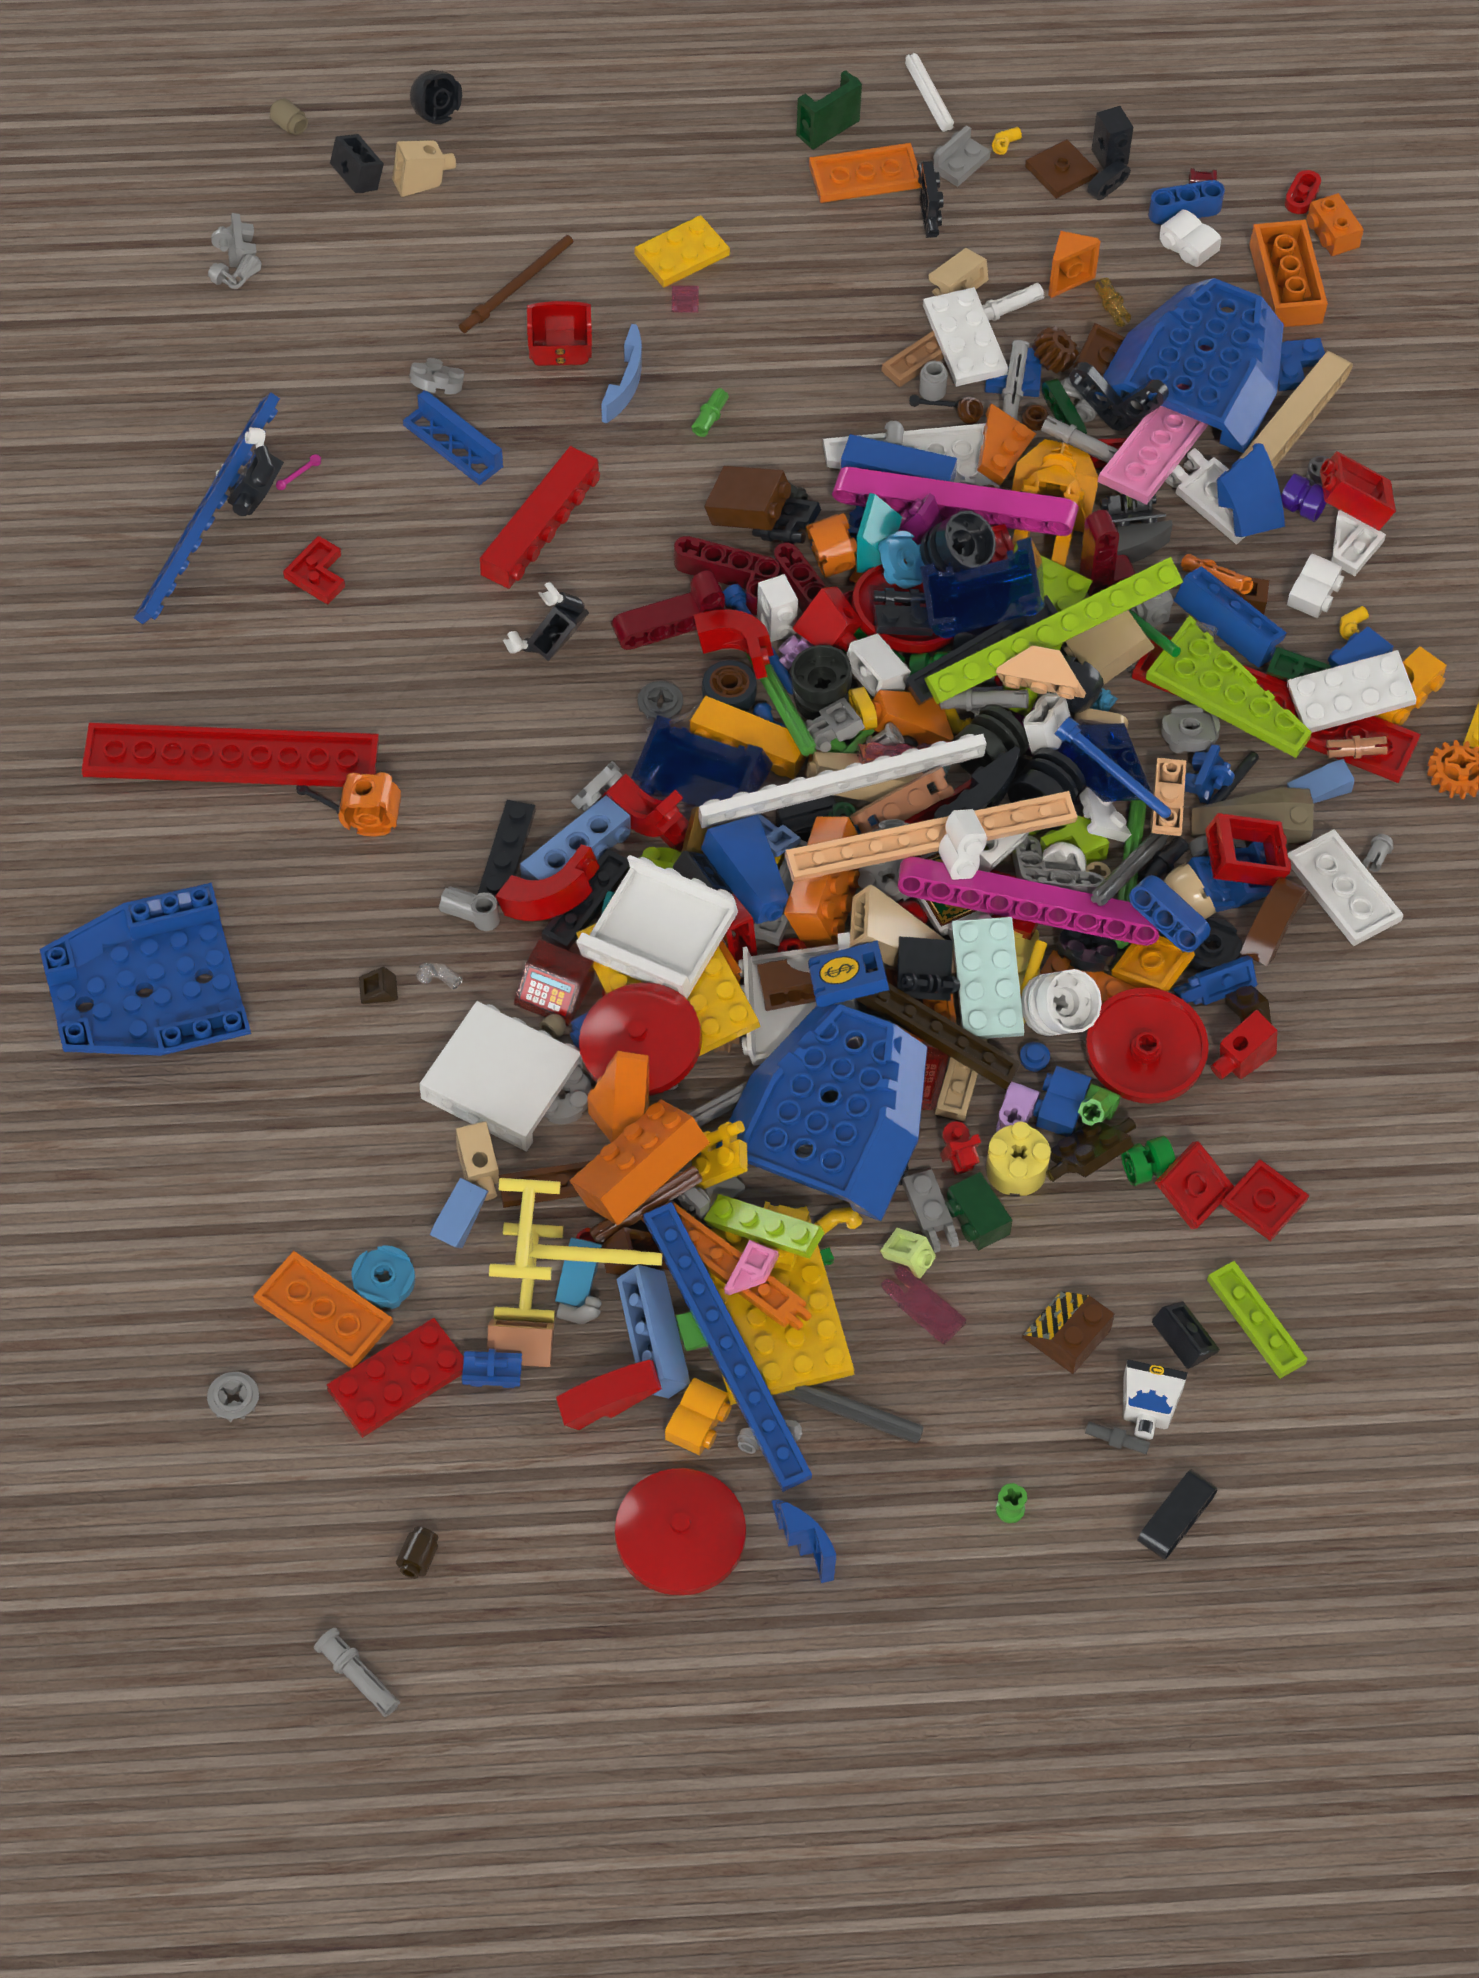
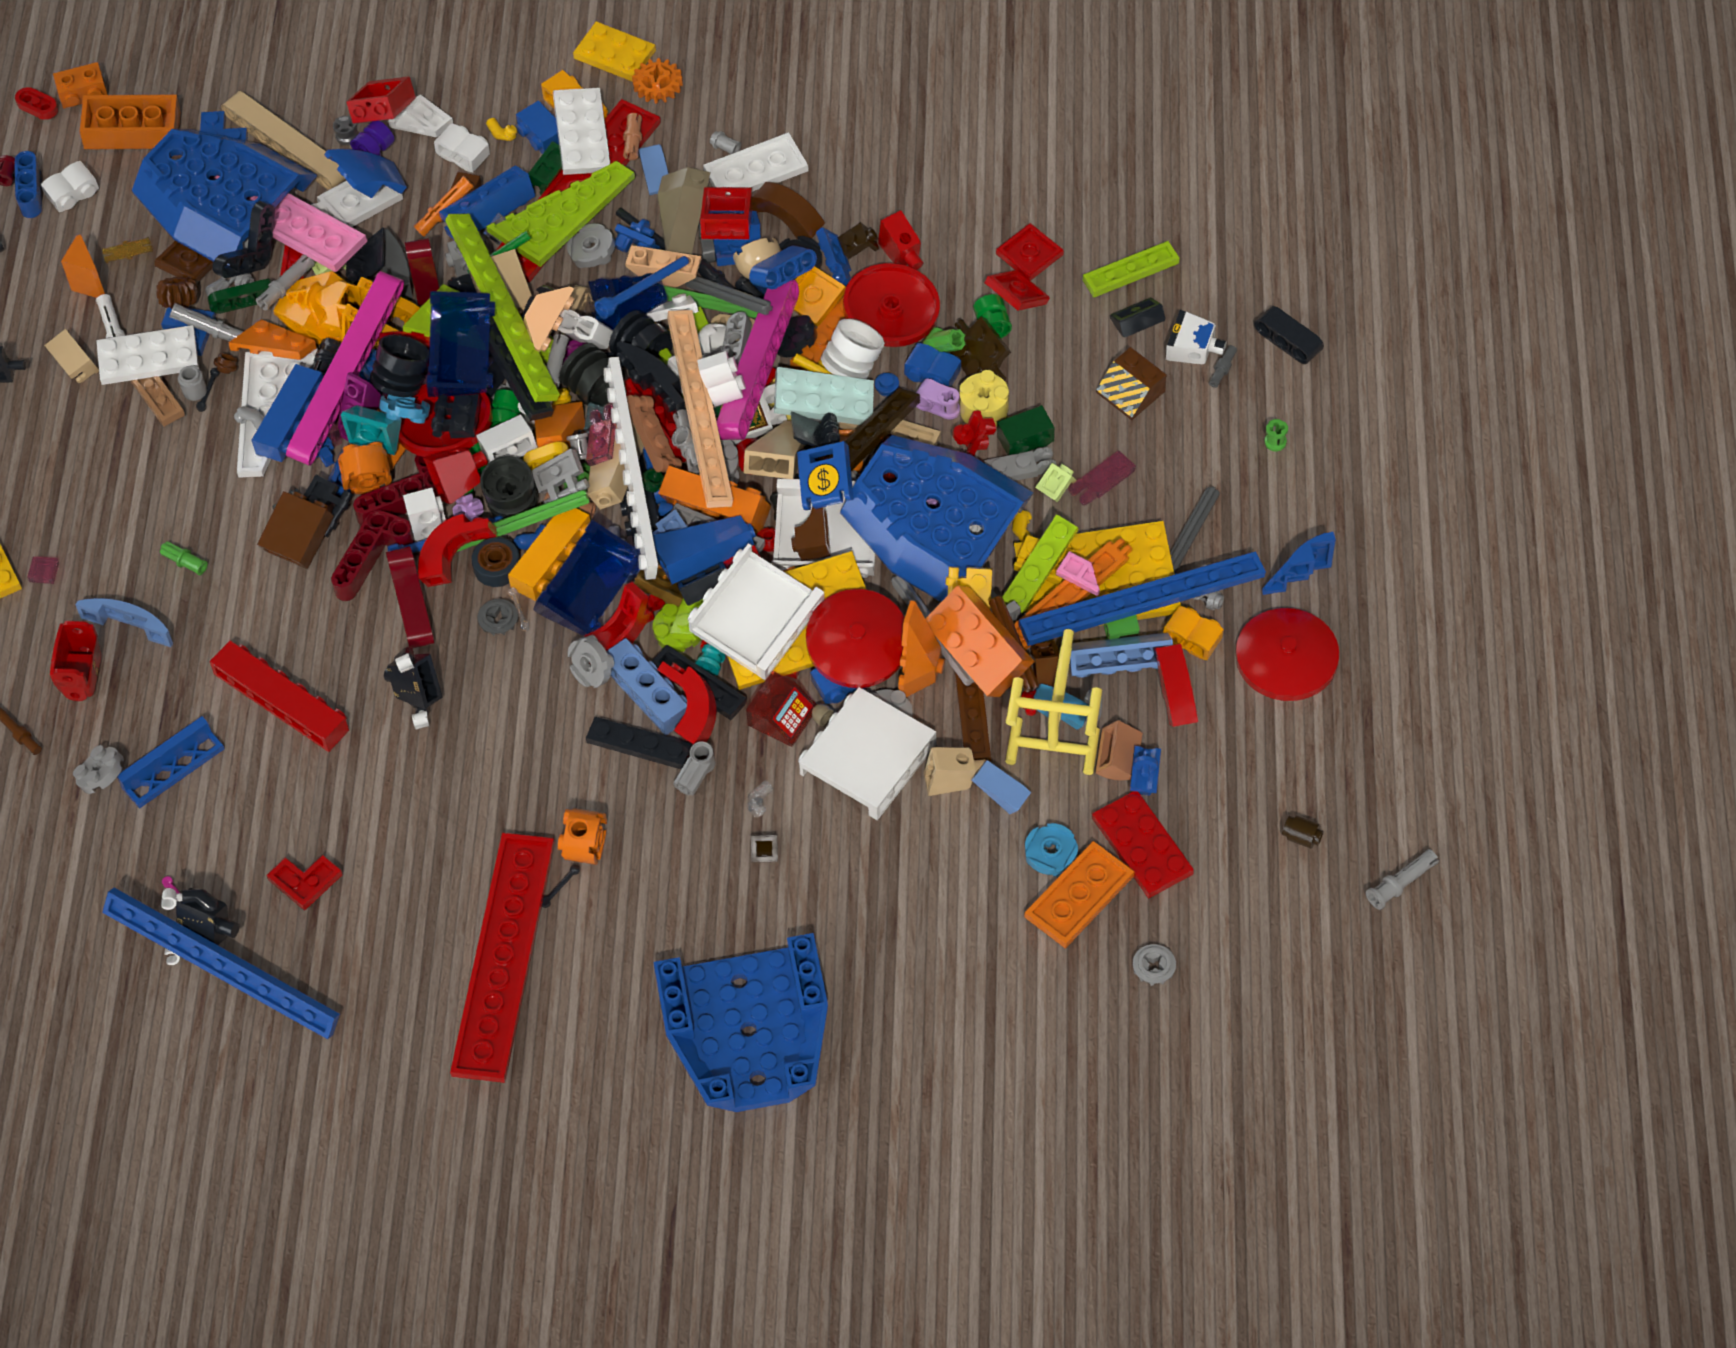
camera: 80 degrees left, 0 degrees up
(1034, 417) = (238, 318): reddish brown plate -> none

